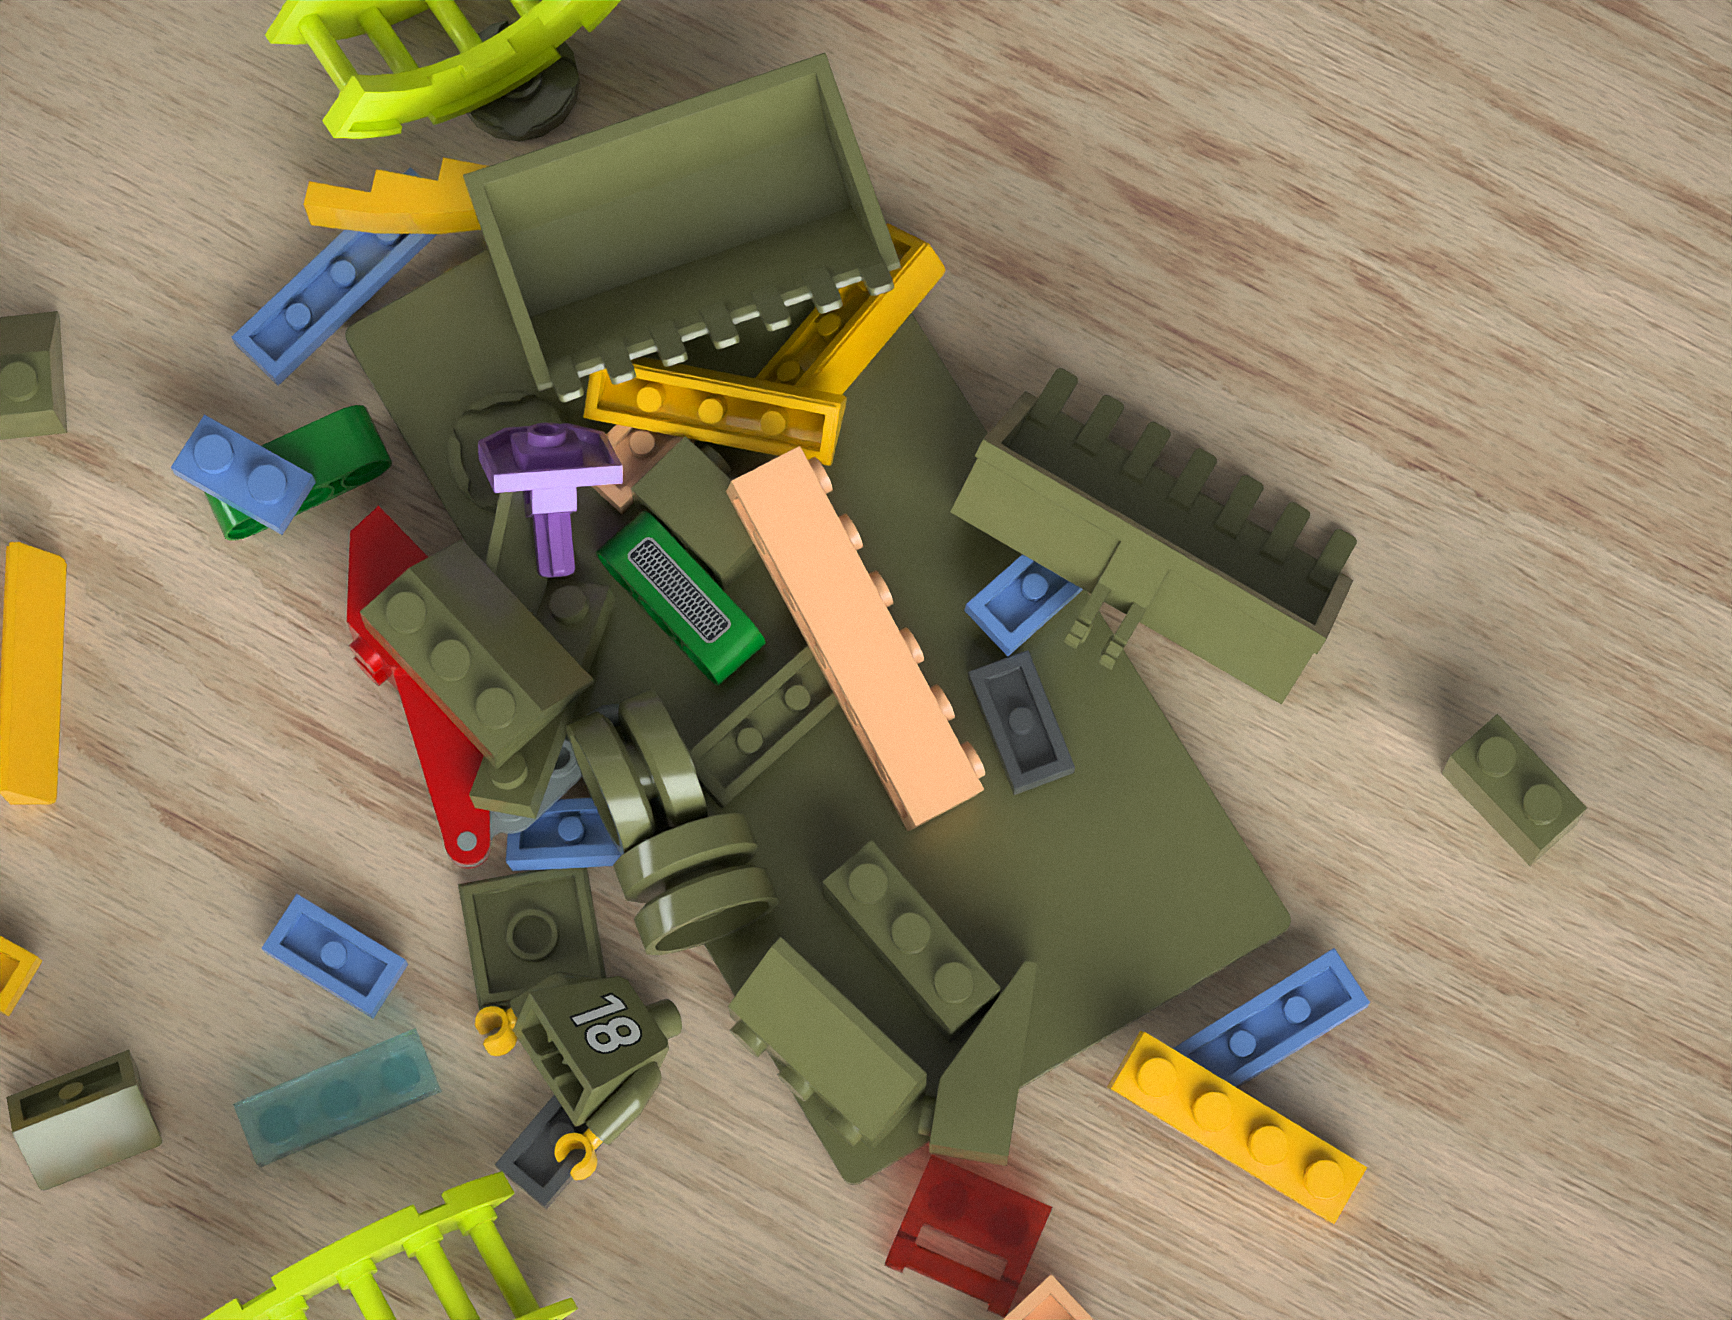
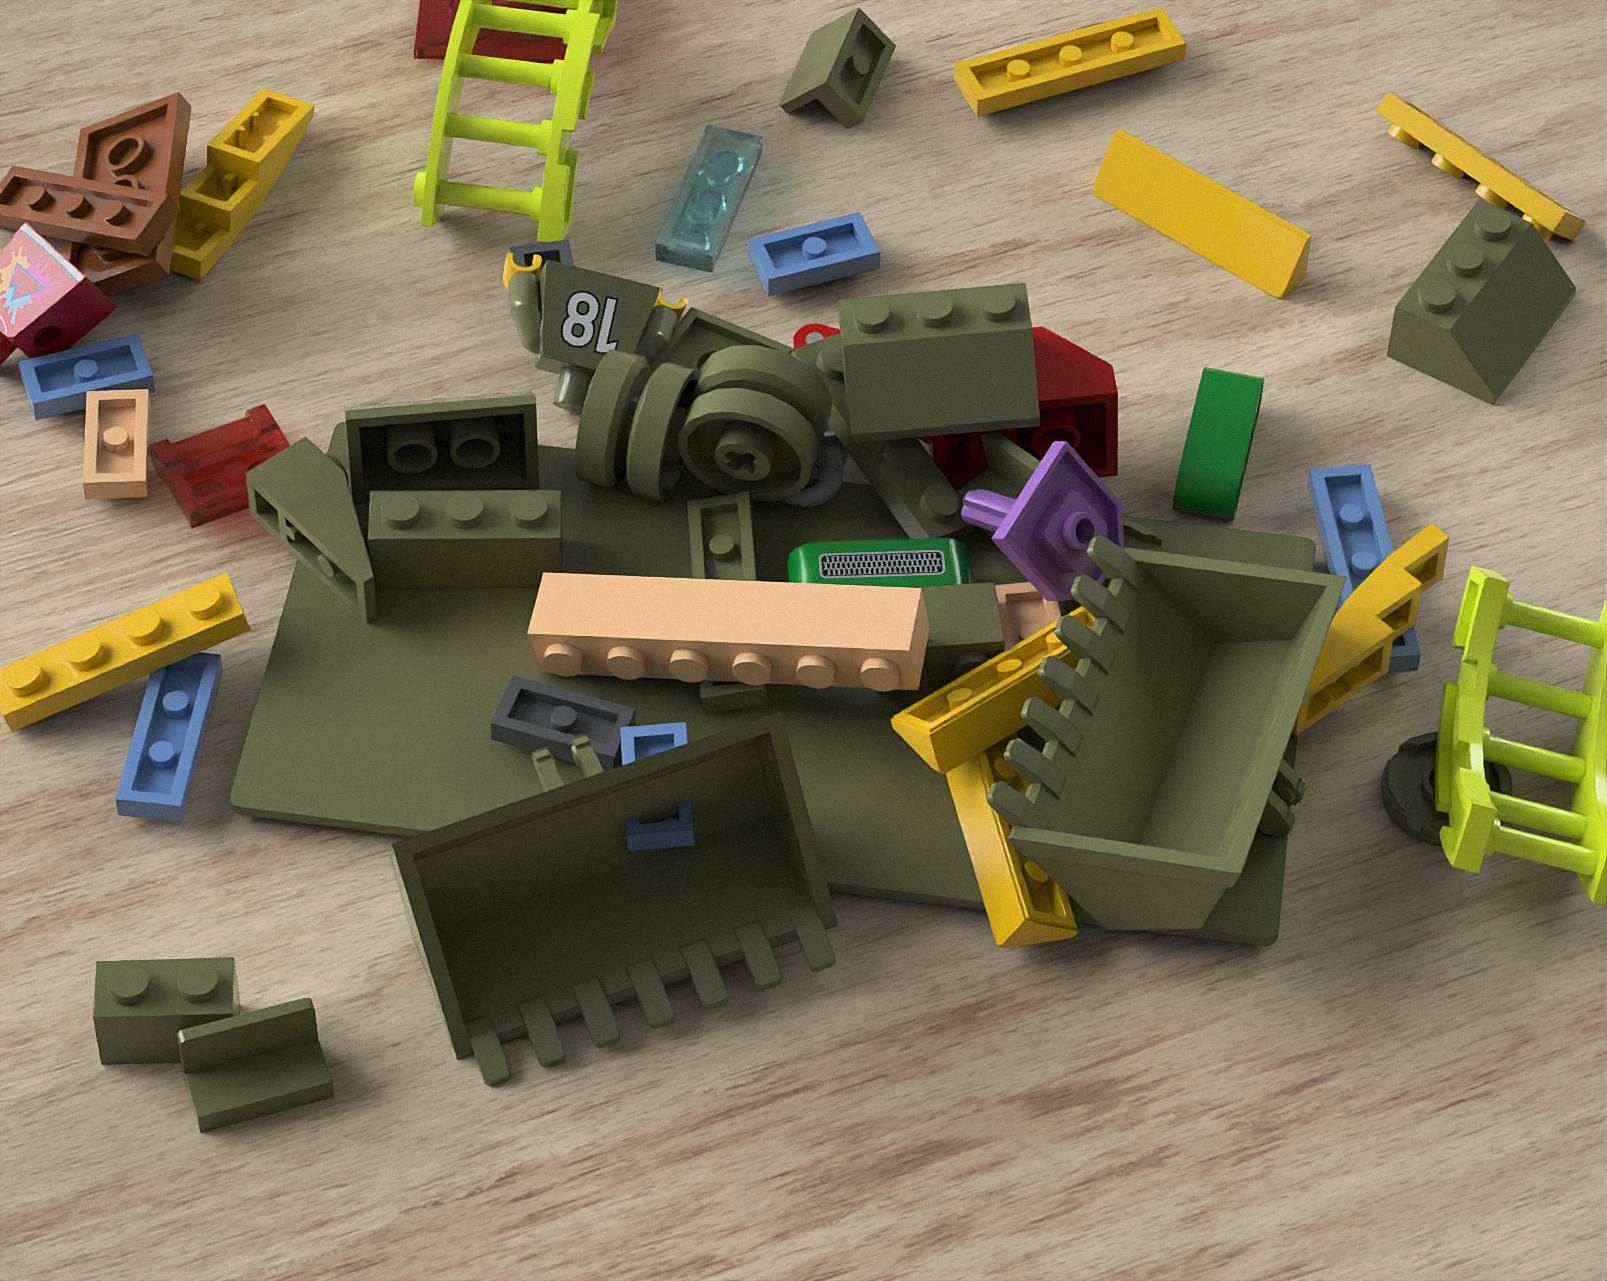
camera: 125 degrees right, 25 degrees down
(243, 474) = (1237, 383): medium blue plate -> none
(1488, 685) = (254, 1064): none -> olive panel

